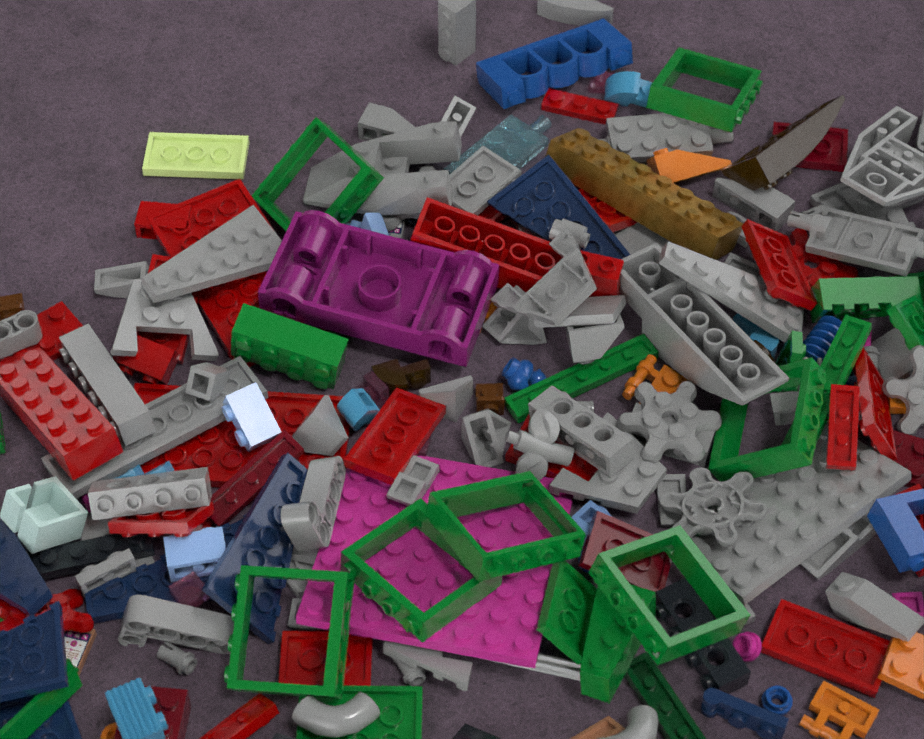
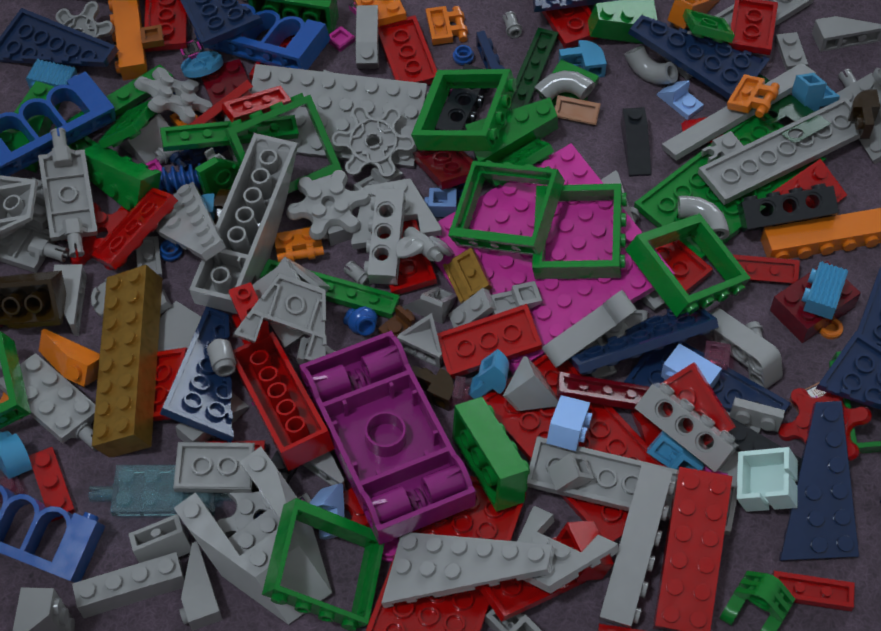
camera: 130 degrees left, 5 degrees up
(440, 90) = (129, 585): none -> light grey brick
(441, 450) = (473, 309): none -> light grey plate
(475, 466) = (467, 275): none -> pearl gold plate

